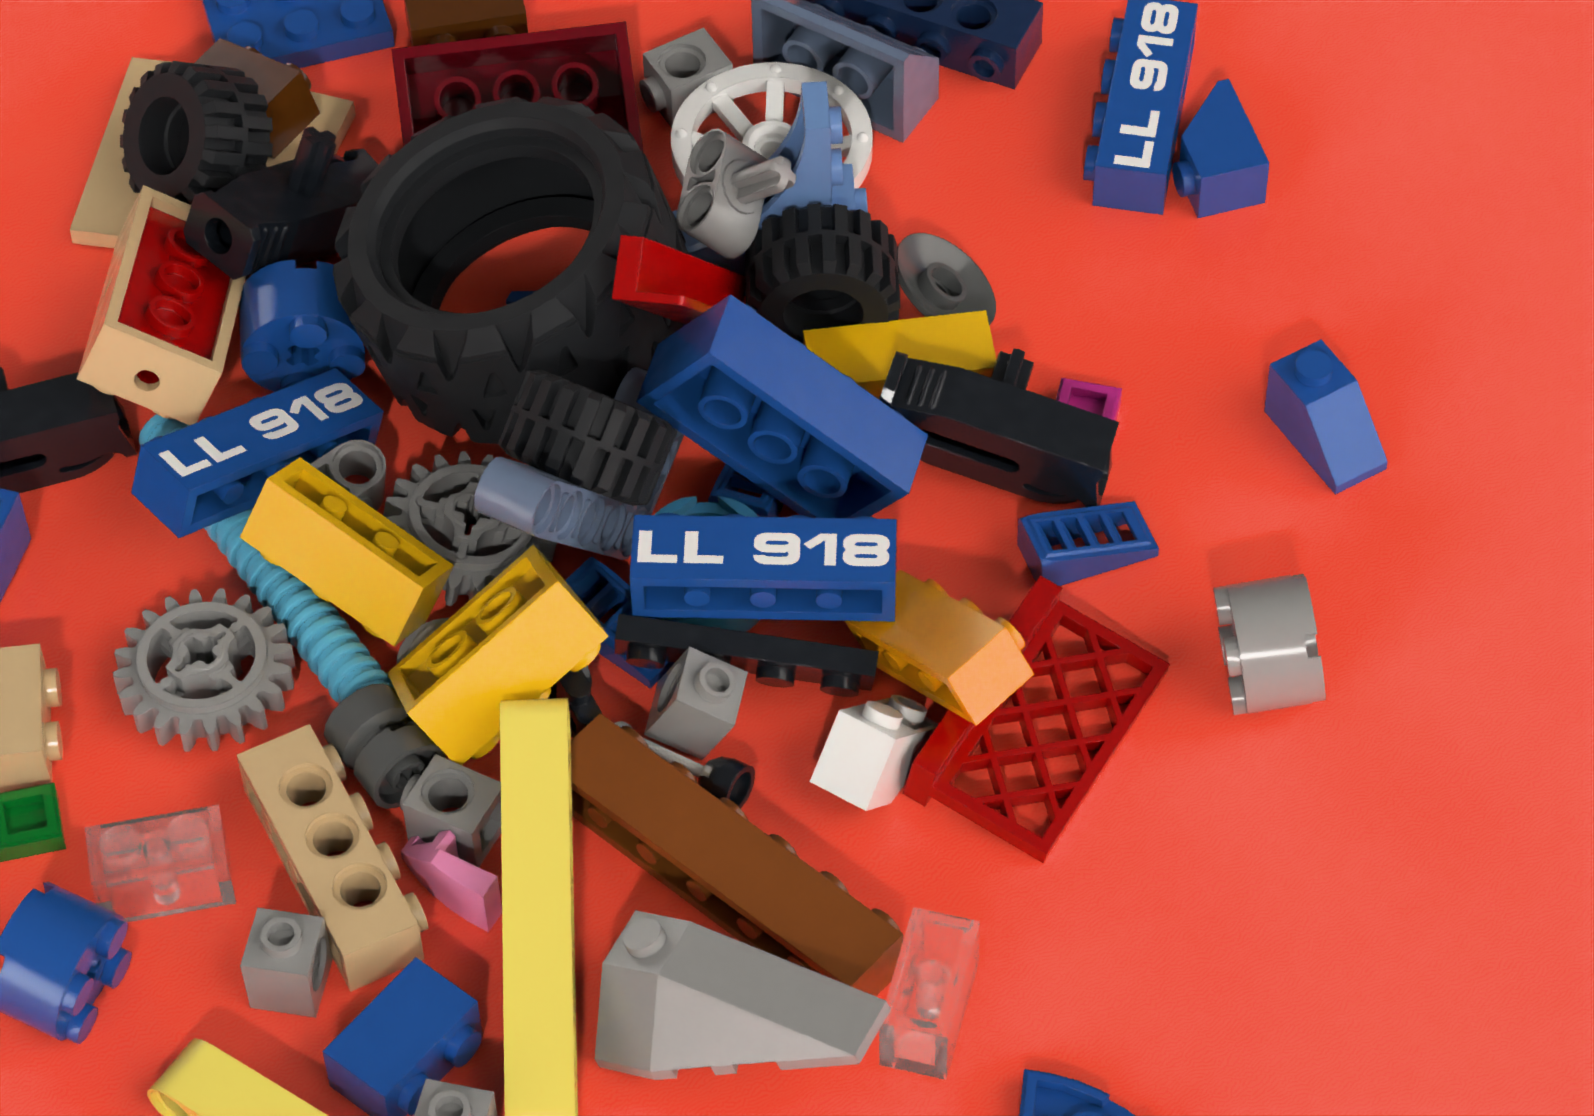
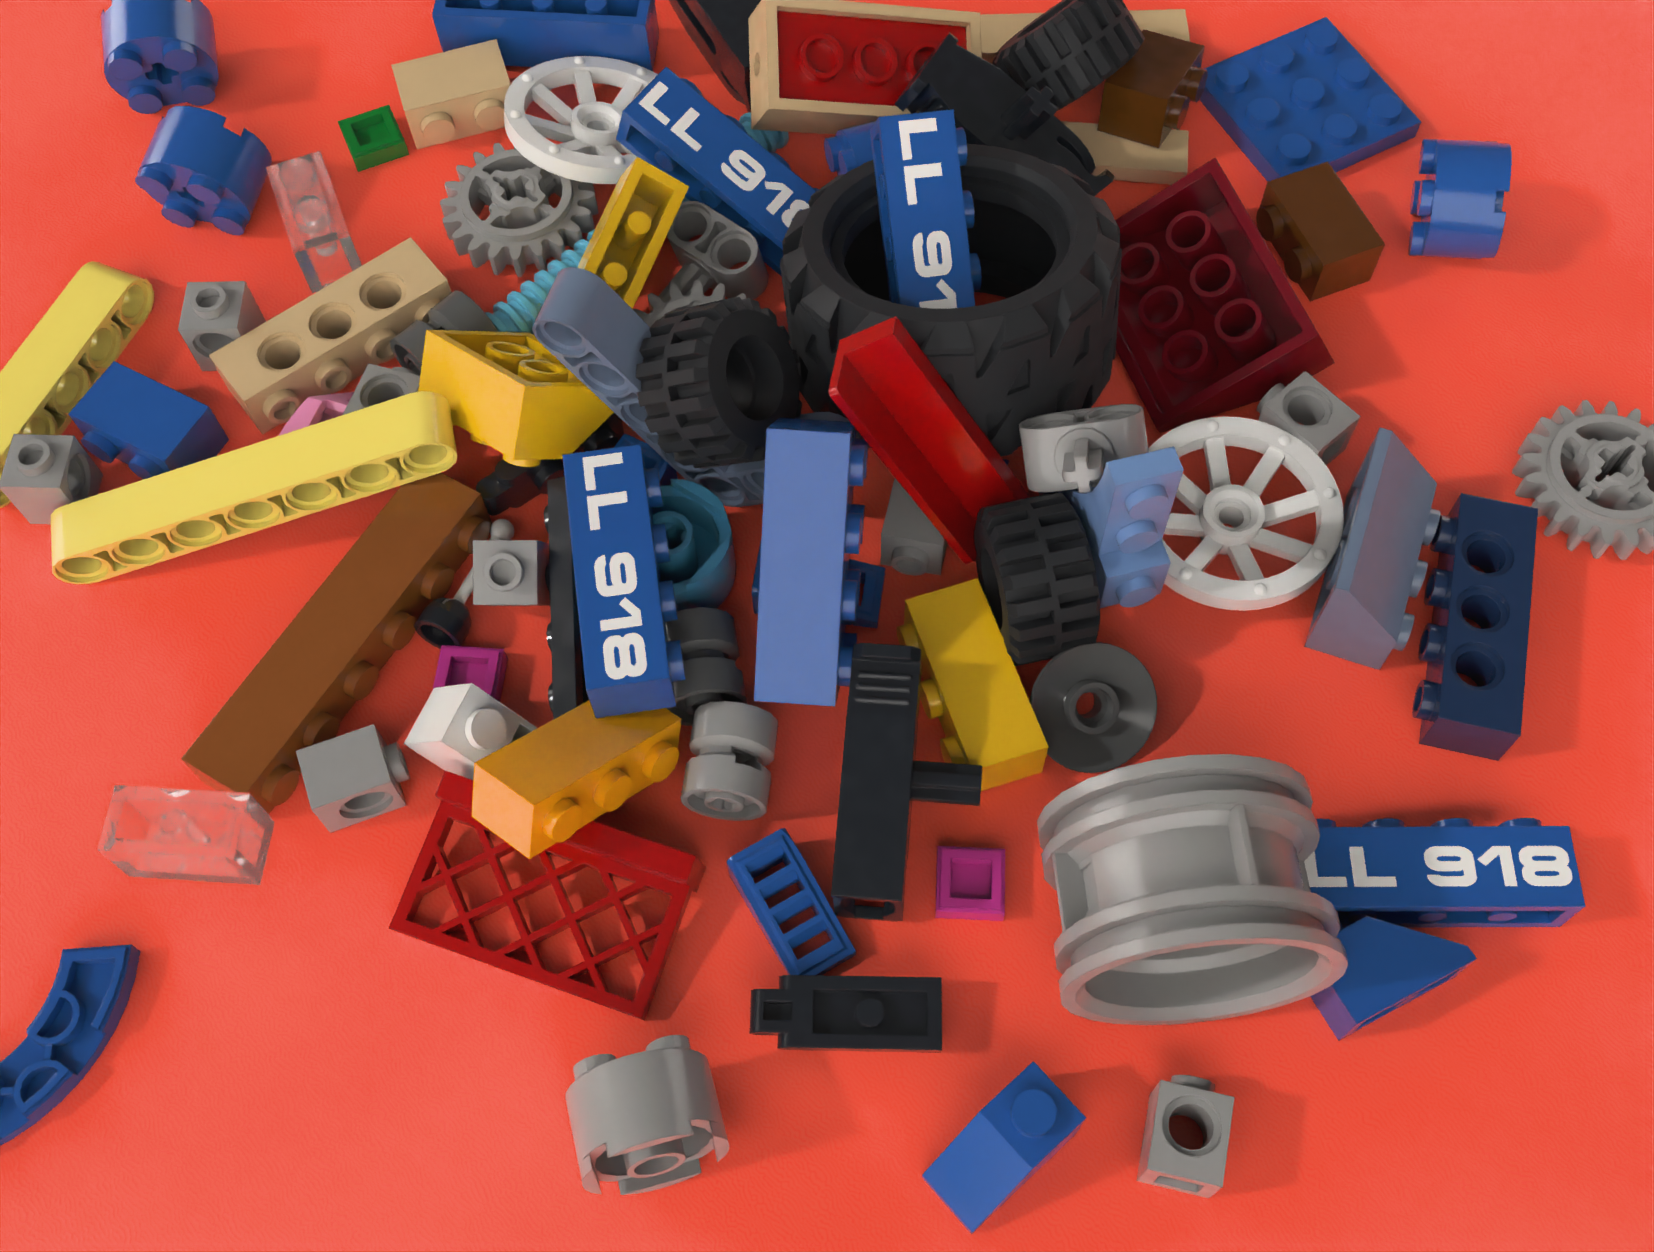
camera: 80 degrees right, 10 degrees up
(115, 585) = (588, 130): none -> white wheel
(443, 246) = (925, 210): none -> blue brick
(706, 1000) = (163, 662): light grey wedge -> none
(785, 776) = (472, 665): none -> dark pink tile
(888, 862) = (353, 777): none -> light grey brick
(949, 554) = (730, 751): none -> light grey wheel
(1158, 218) = (1187, 891): none -> light grey wheel
(1194, 505) = (851, 1013): none -> black hinge
(1335, 301) = (1168, 1163): none -> light grey brick

